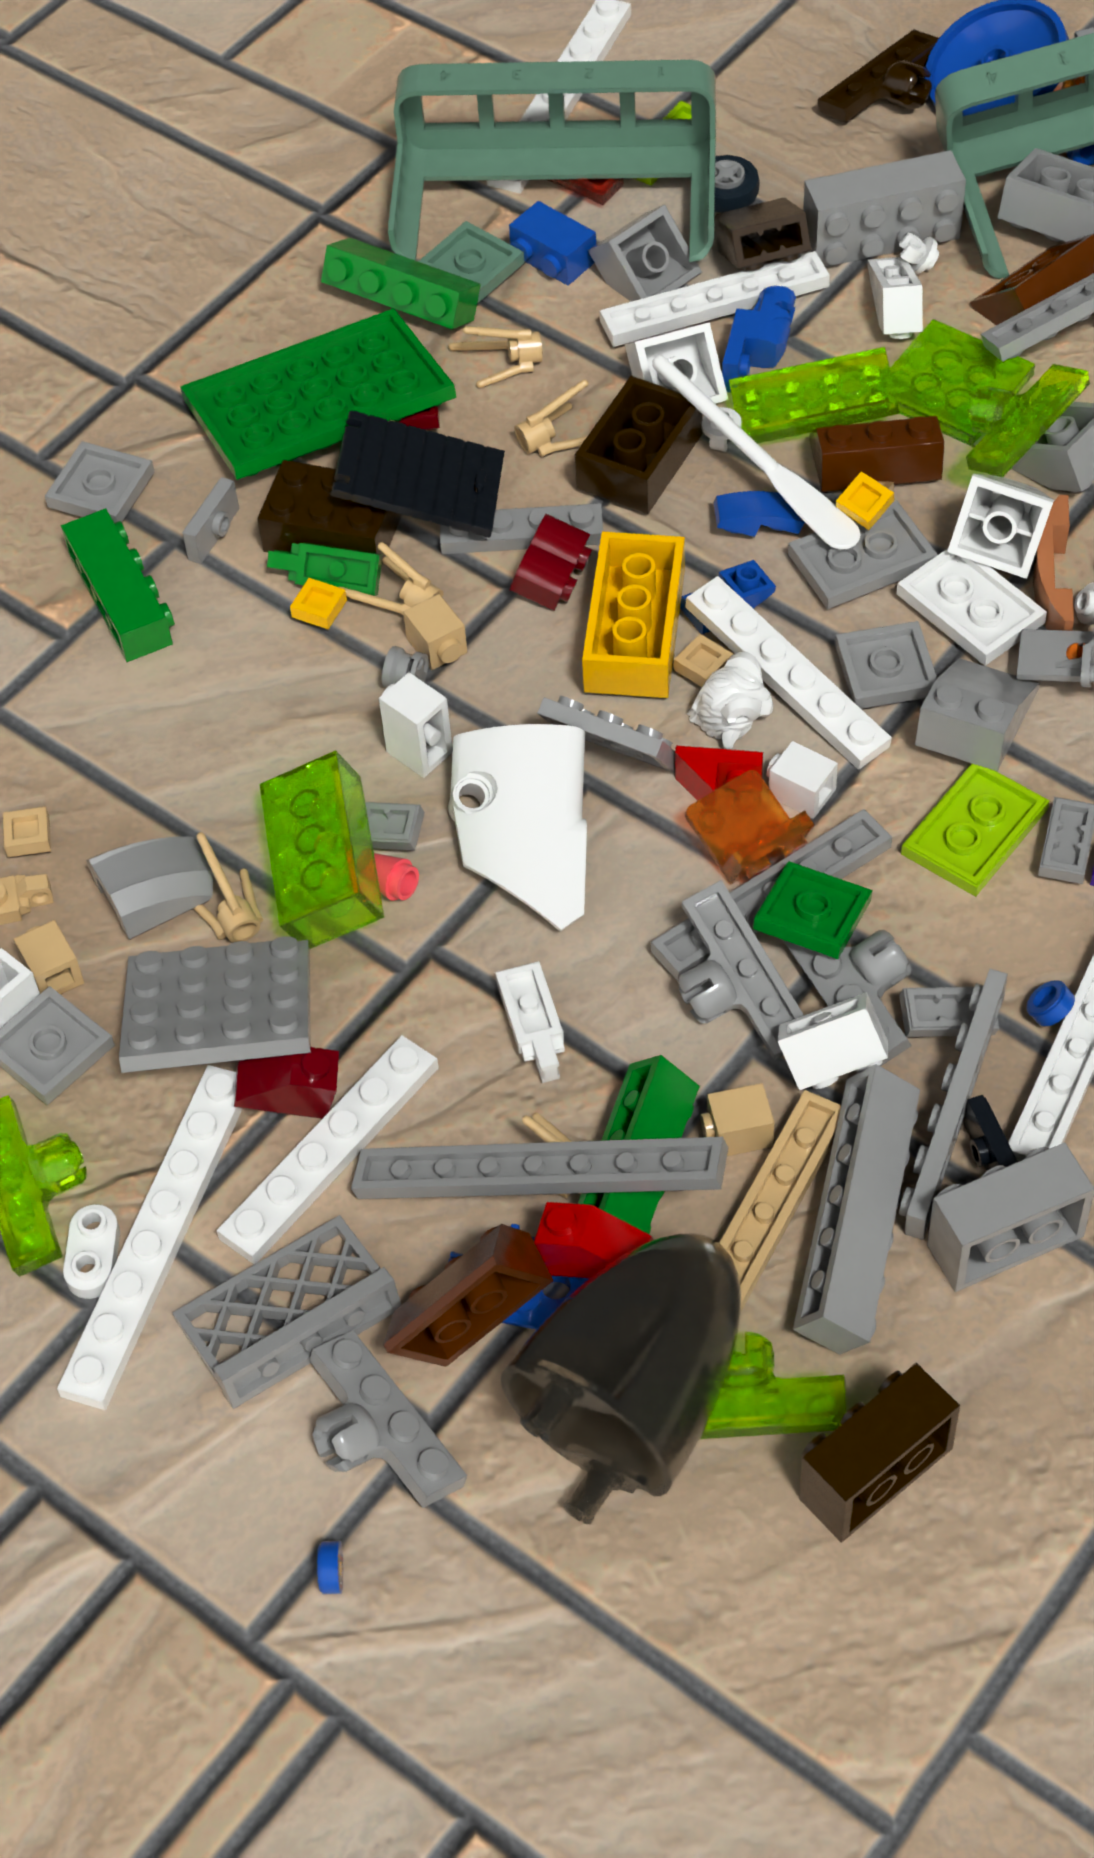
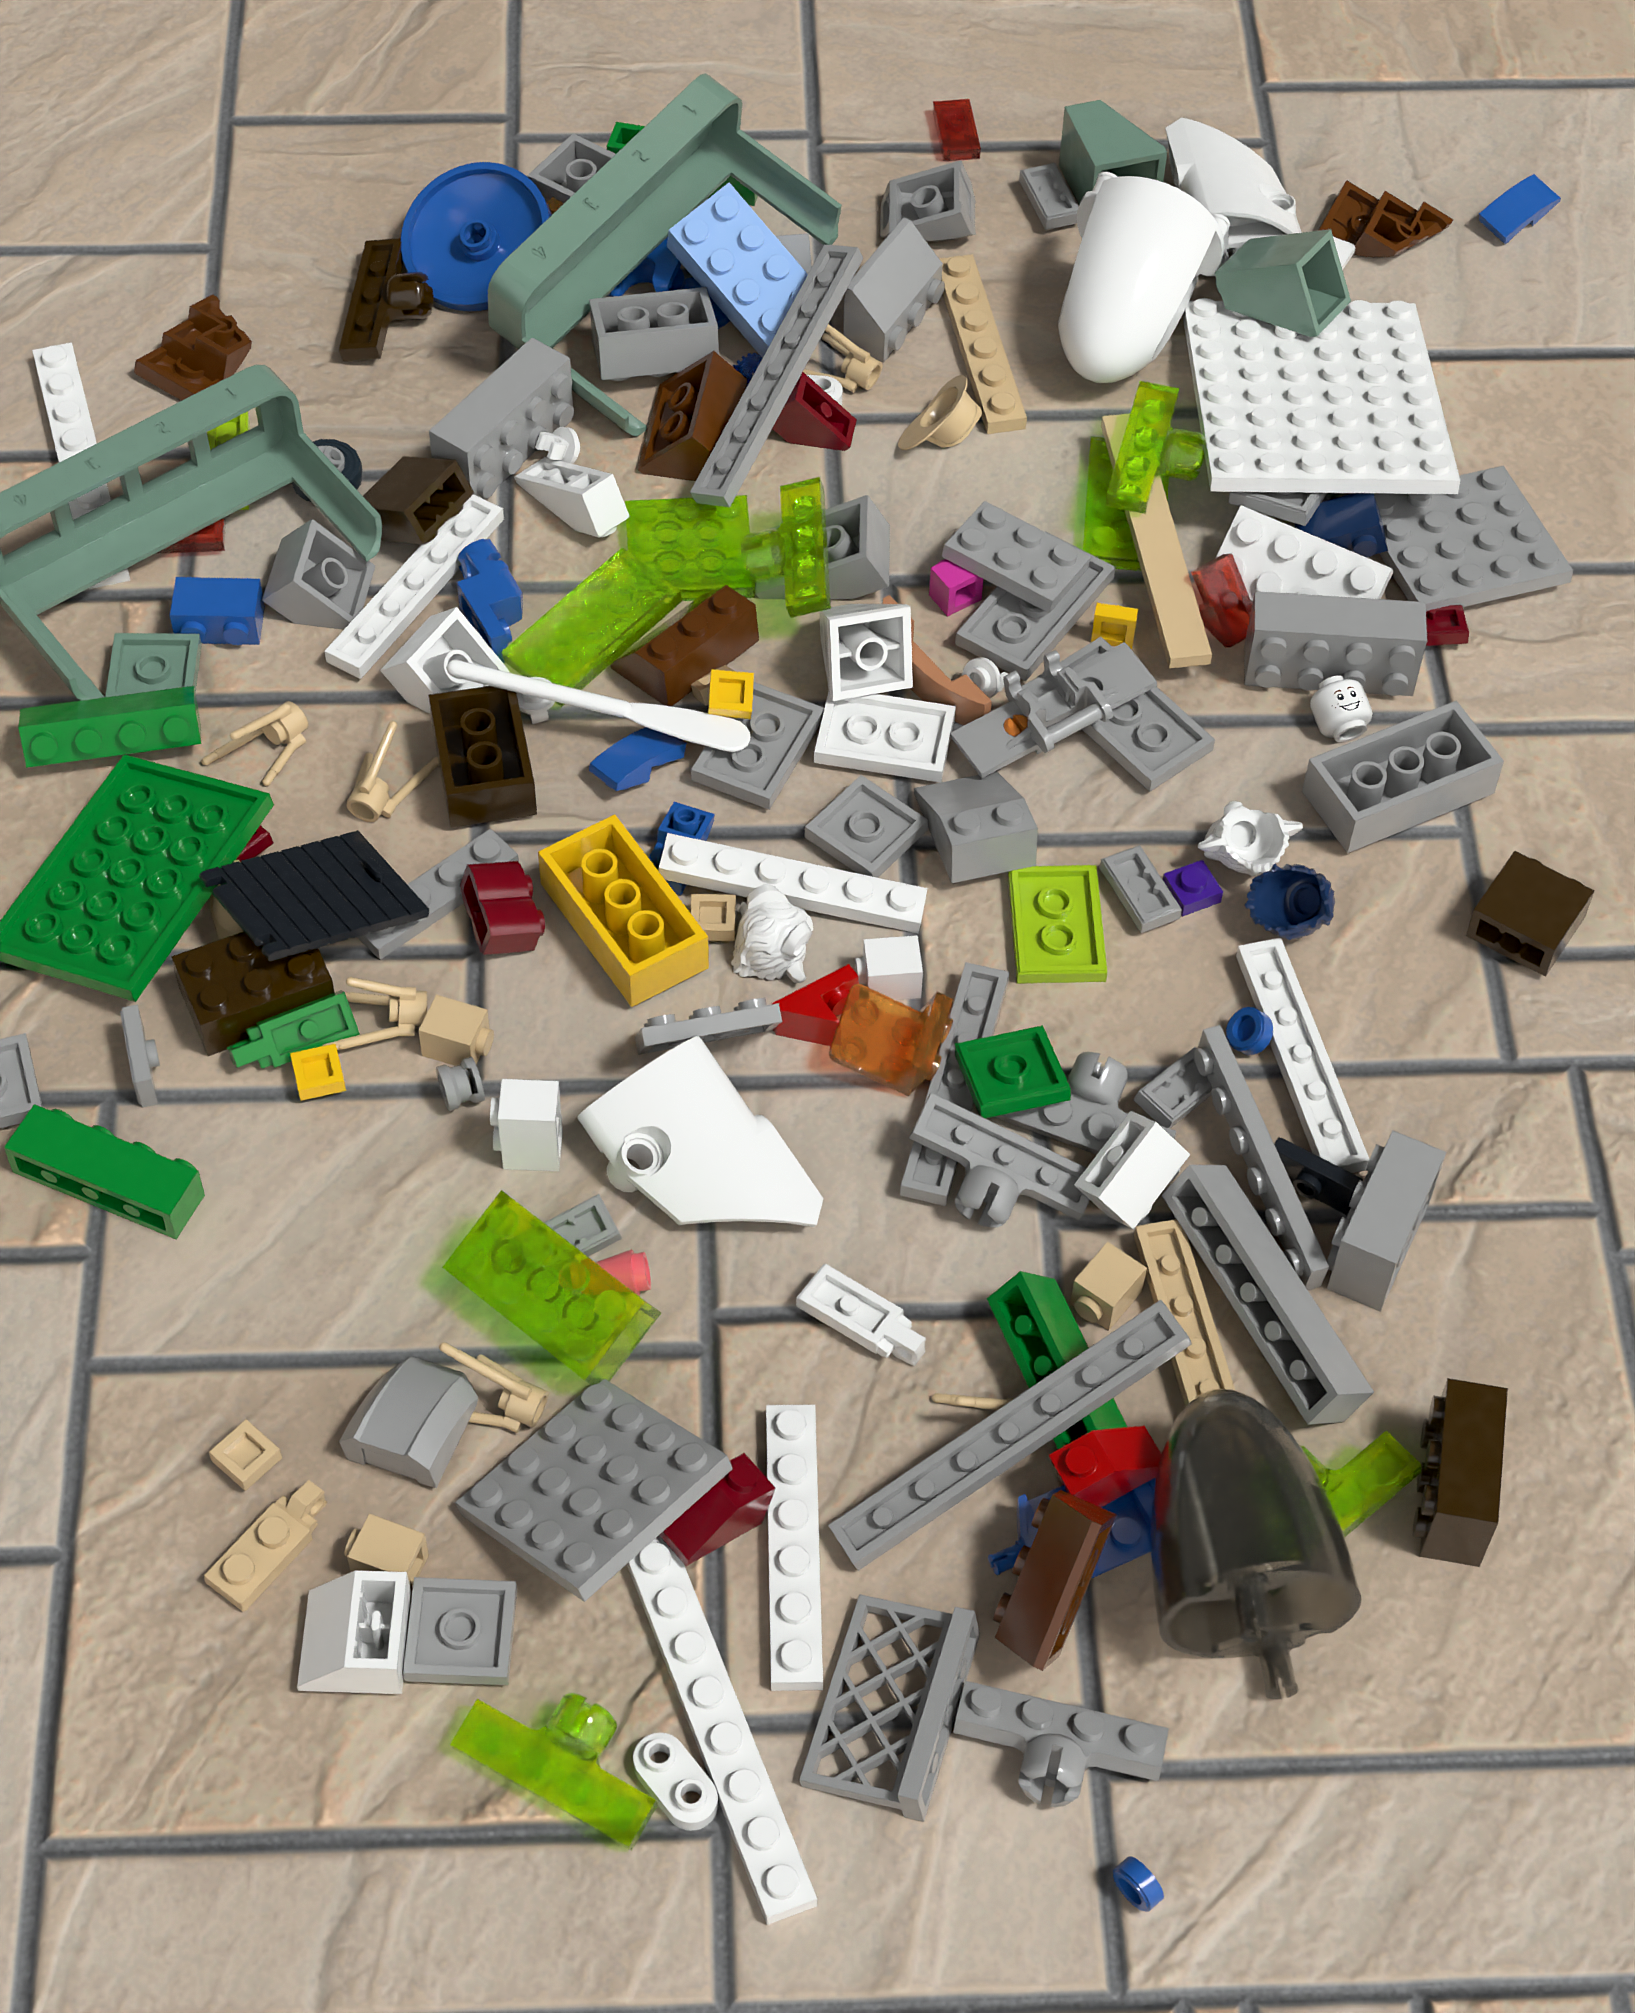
camera: 45 degrees left, 0 degrees up
(726, 49) = (196, 351): none -> reddish brown slope

